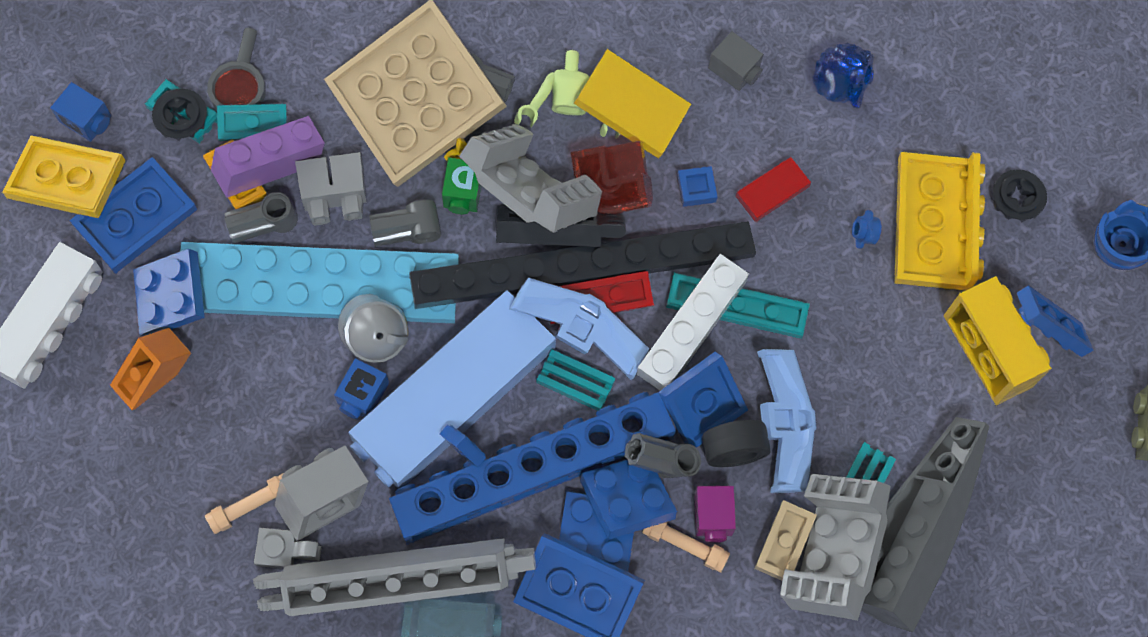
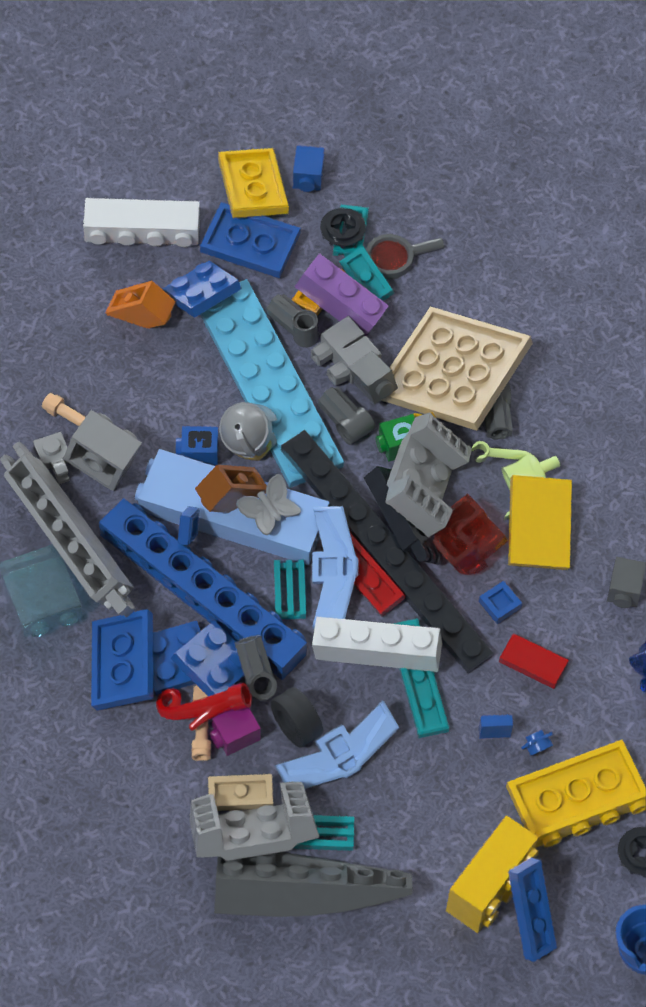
camera: 65 degrees right, 10 degrees down
(385, 173) = (373, 377): none -> dark grey brick
(446, 380) = (228, 484): none -> dark orange slope
(488, 349) = (269, 507): none -> light grey piece
(684, 530) = (204, 709): none -> red plant
(703, 399) = (321, 677): blue plate -> none
(831, 259) = (495, 726): none -> blue tile

